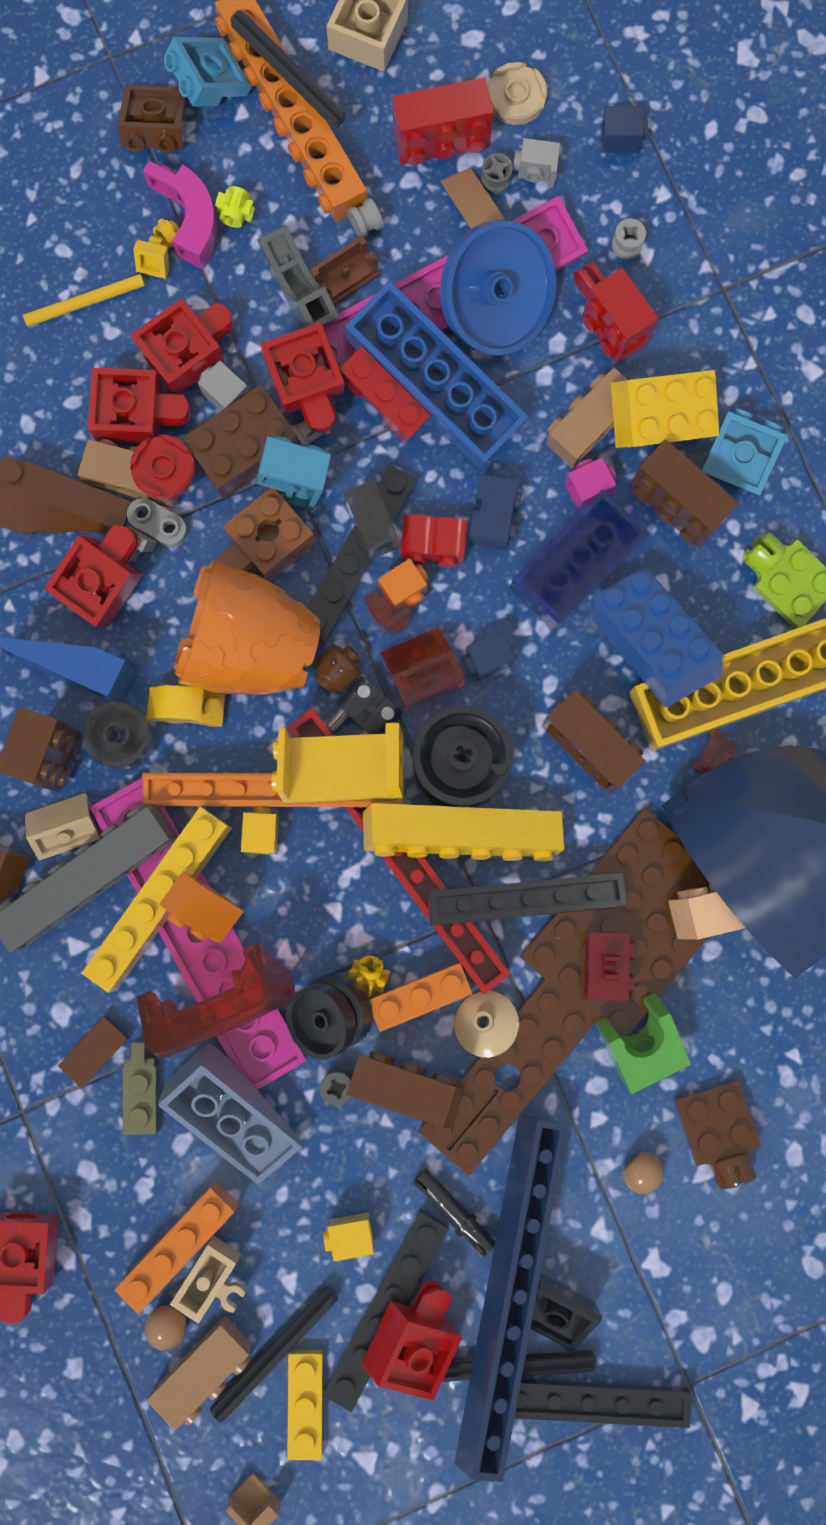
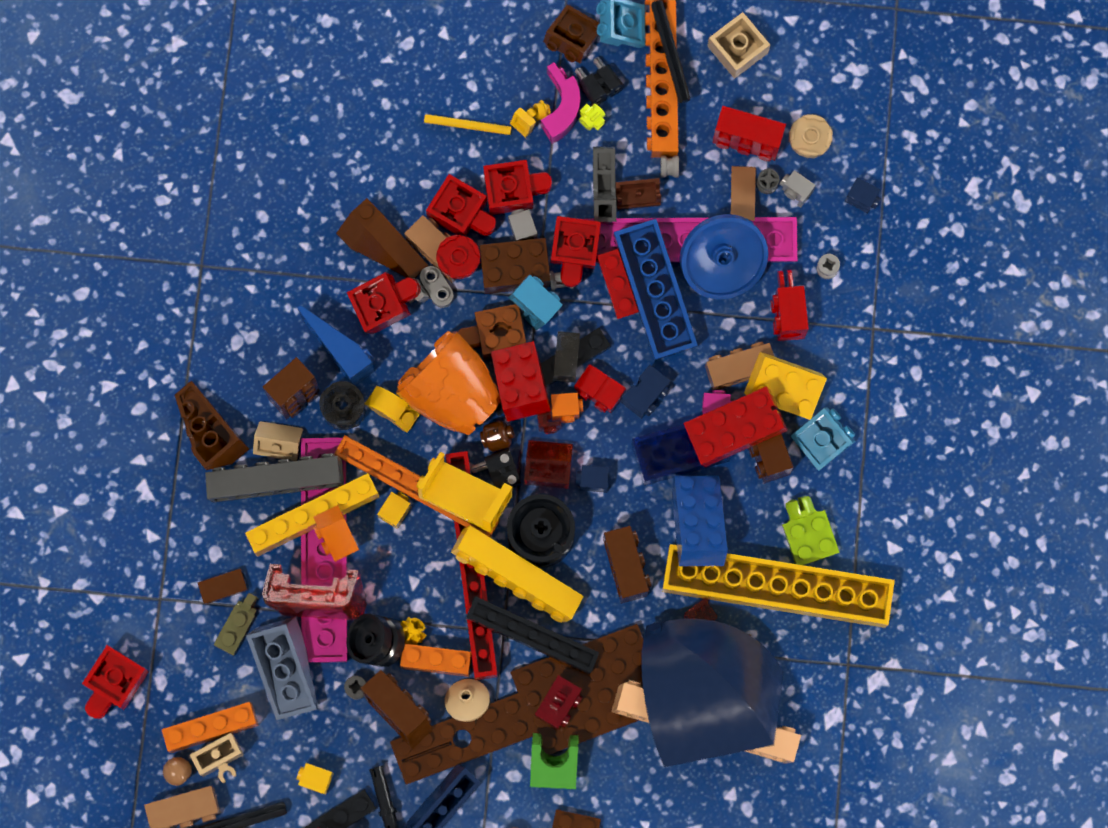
camera: 30 degrees right, 5 degrees down
(223, 162) = (600, 85): none -> black piece
(330, 582) = (520, 381): none -> red brick
(641, 488) = (735, 426): none -> red piece

